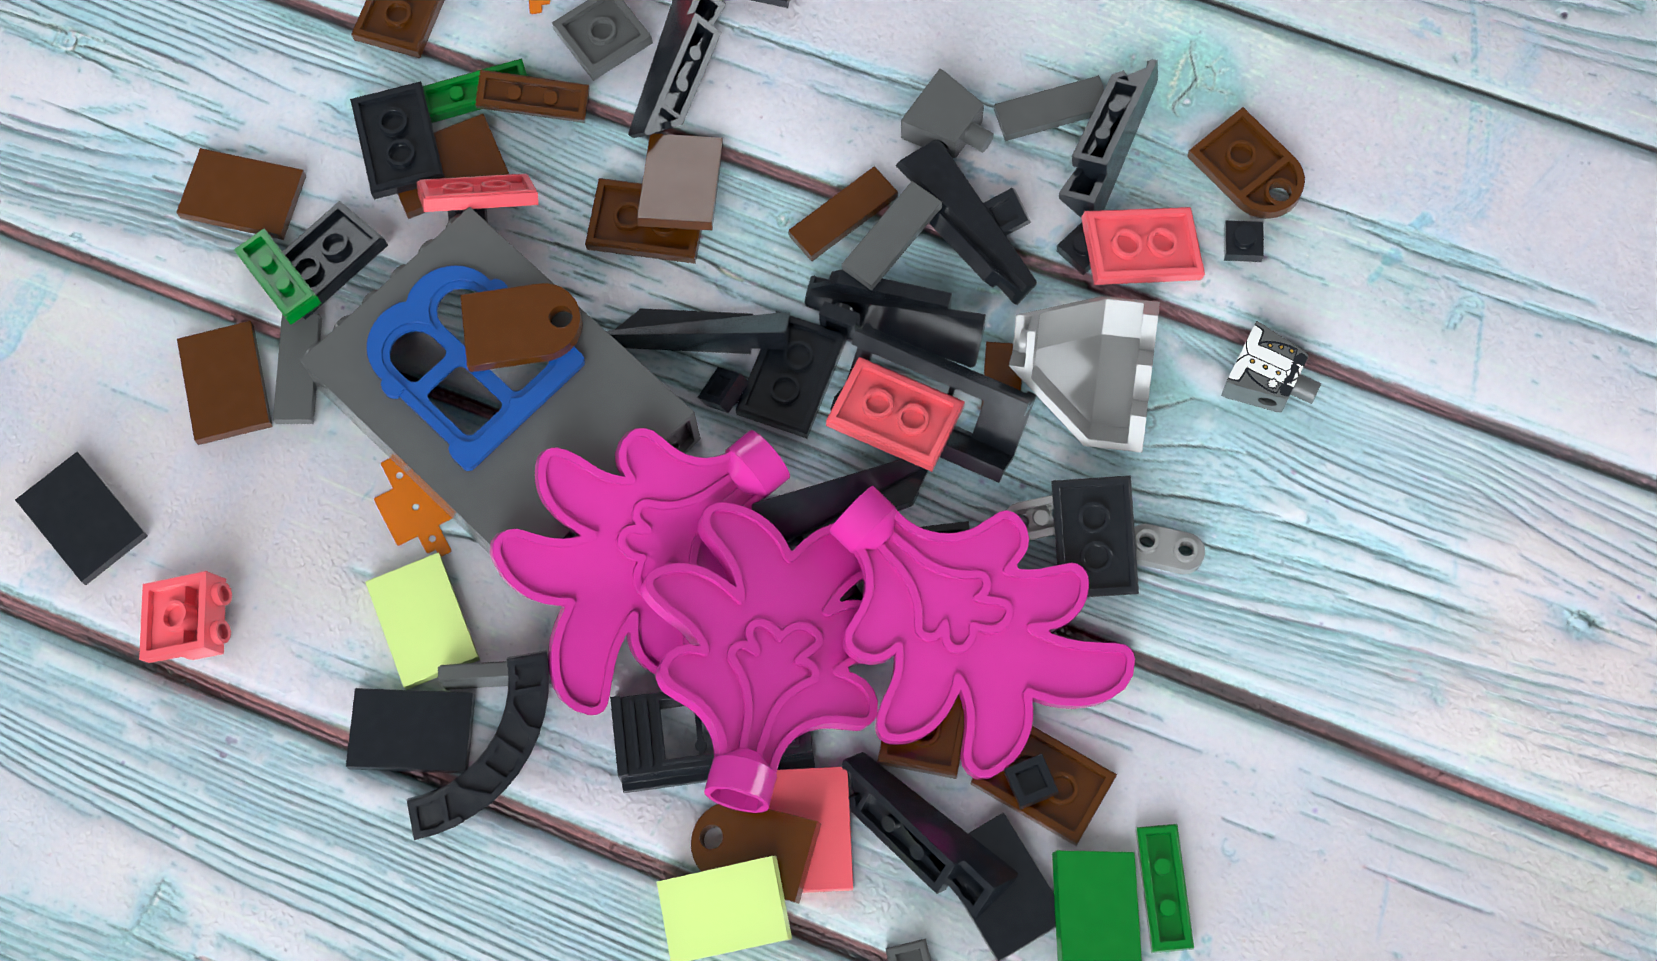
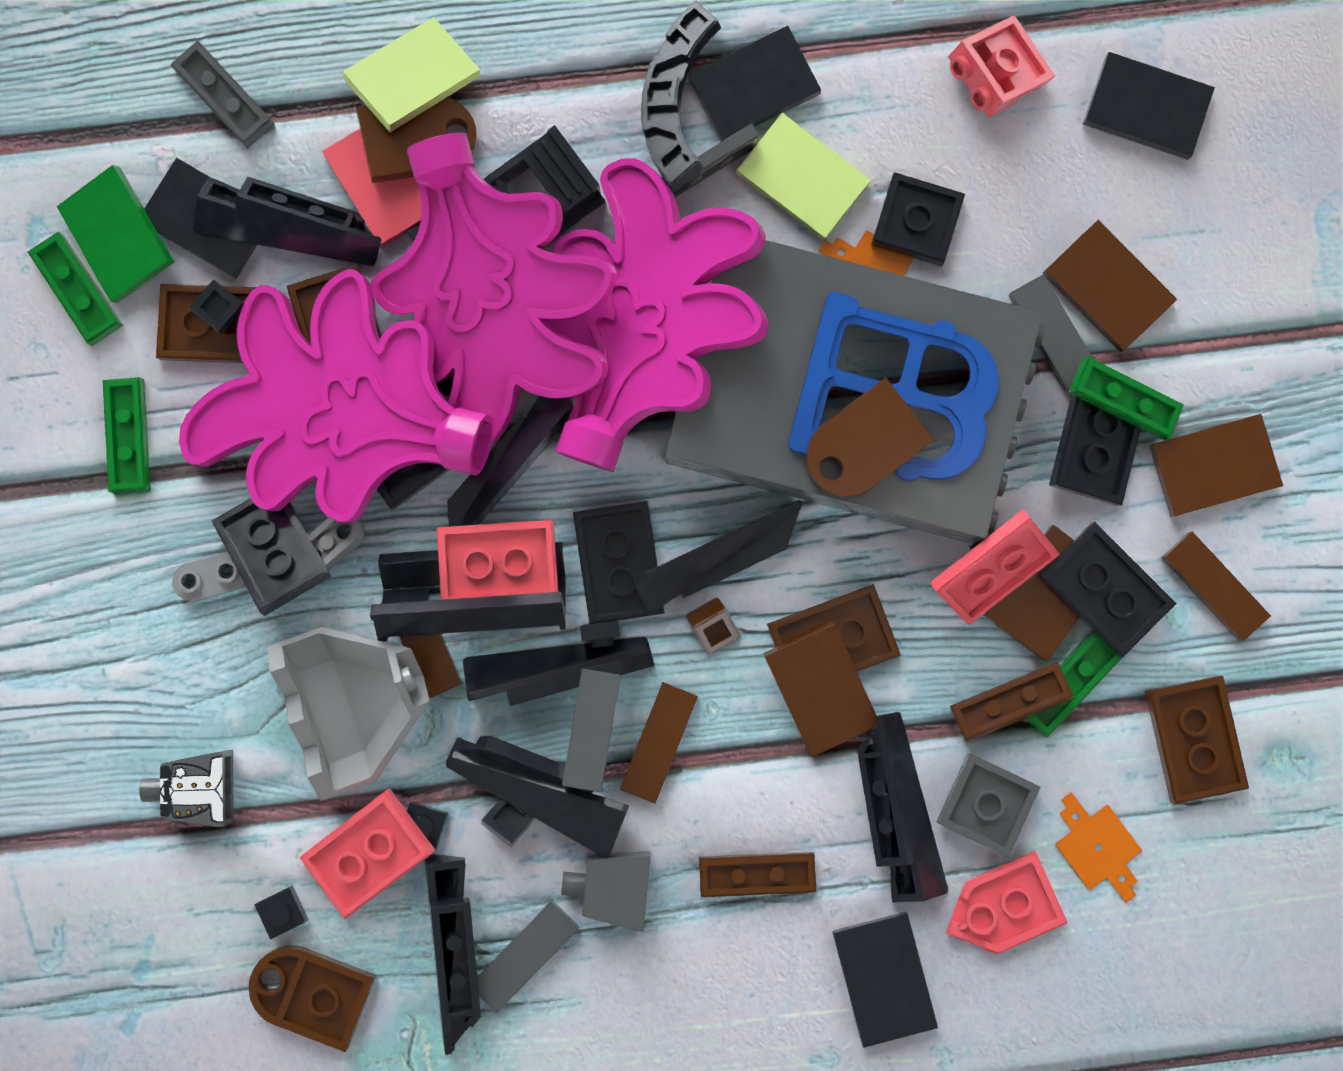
camera: 145 degrees right, 15 degrees up
(309, 103) = (1216, 586): none -> reddish brown tile
(347, 528) = (918, 219): none -> black tile
(723, 390) = (667, 511): black plate -> none
(741, 283) = (713, 625): none -> reddish brown slope
(822, 76) = (757, 874): none -> reddish brown tile
(1182, 720) = (126, 435): none -> green tile

